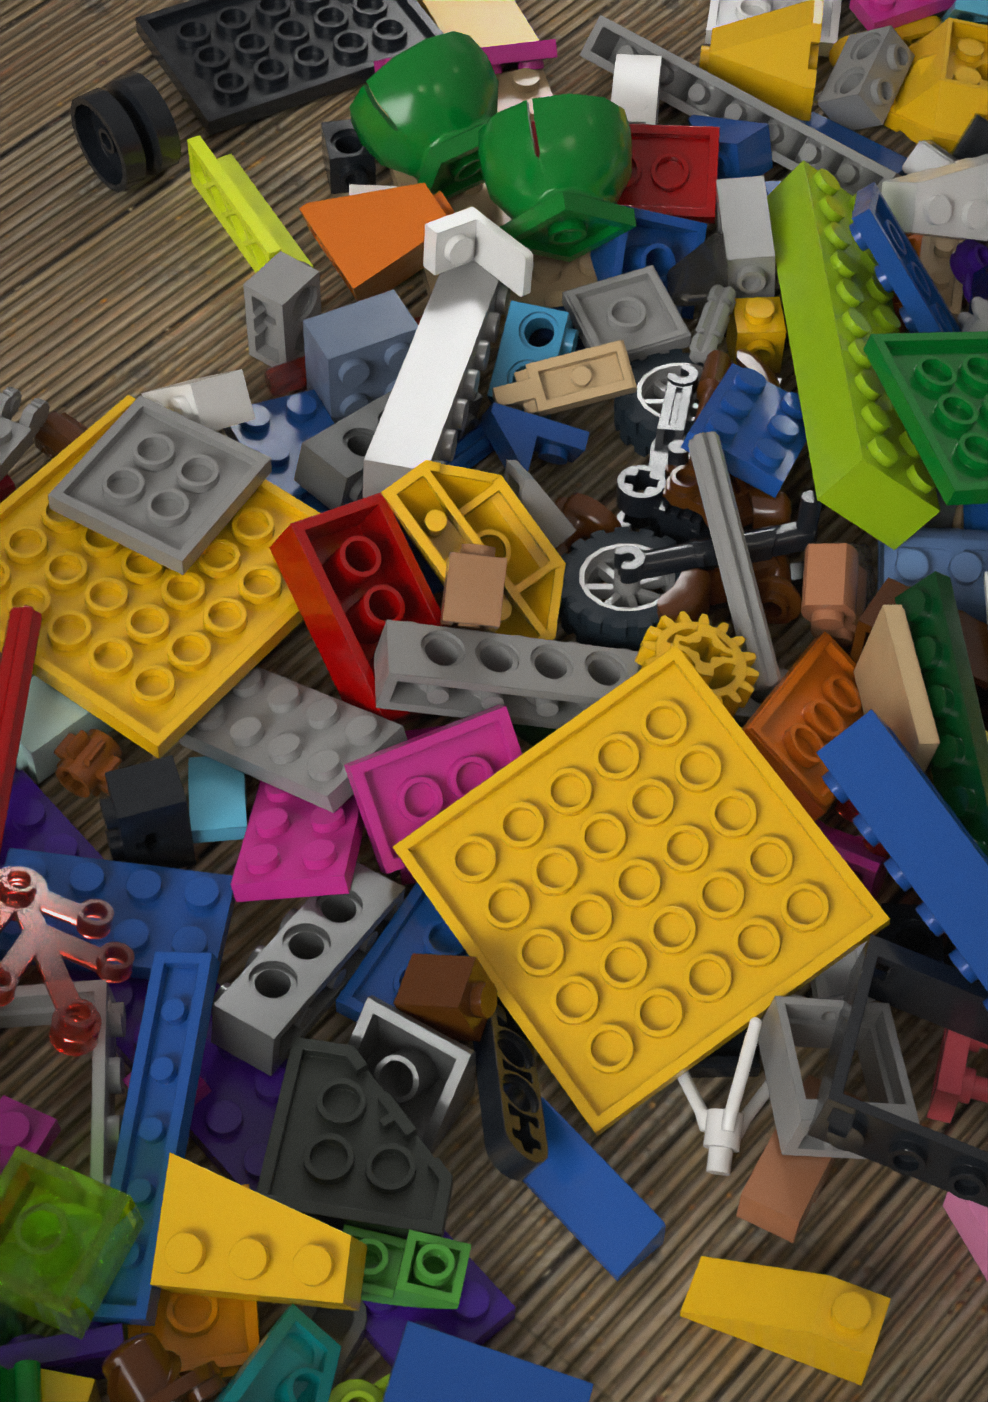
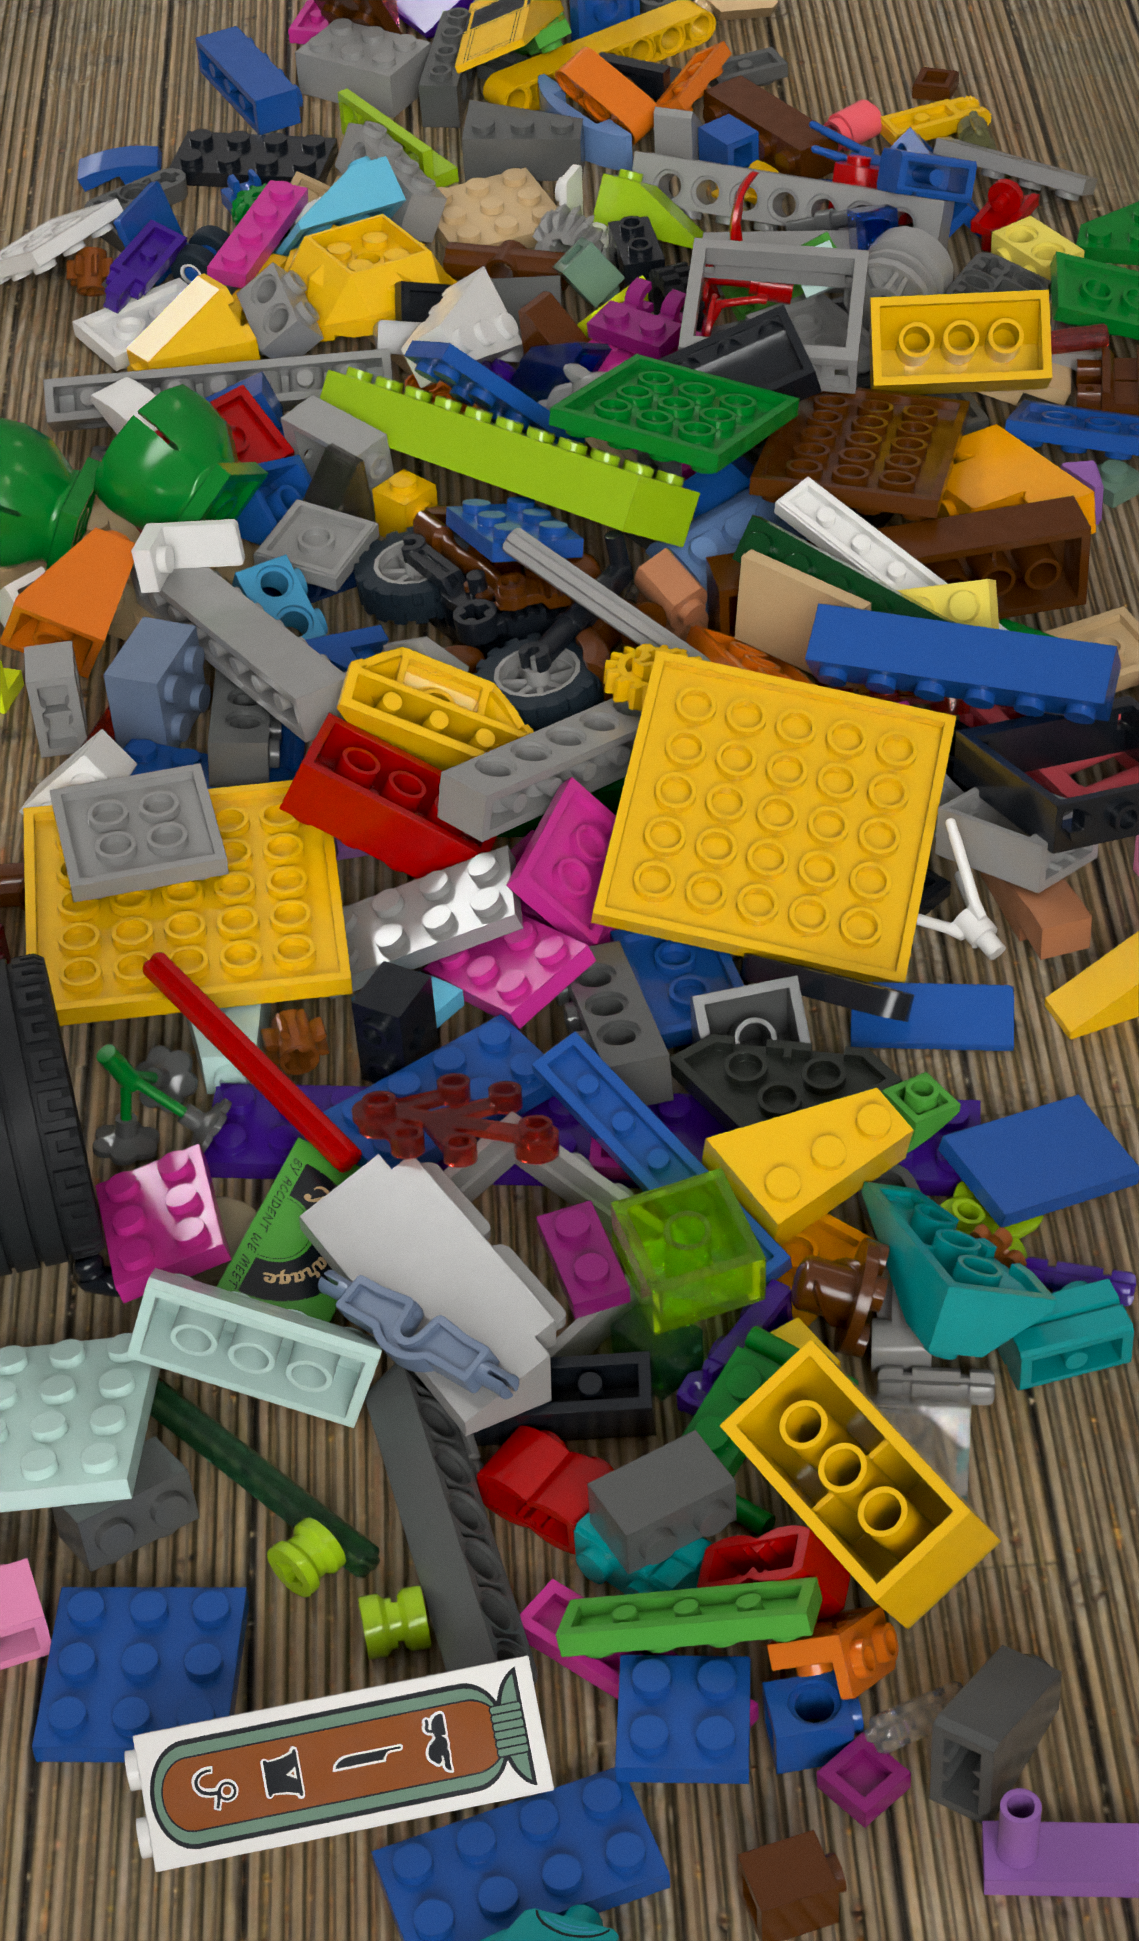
camera: 40 degrees left, 10 degrees down
(448, 994) = (735, 958): reddish brown brick -> none
(473, 589) = (476, 715): medium nougat brick -> none
(570, 380) = (337, 594): tan hinge -> none
(712, 322) = (385, 507): light grey axle -> none

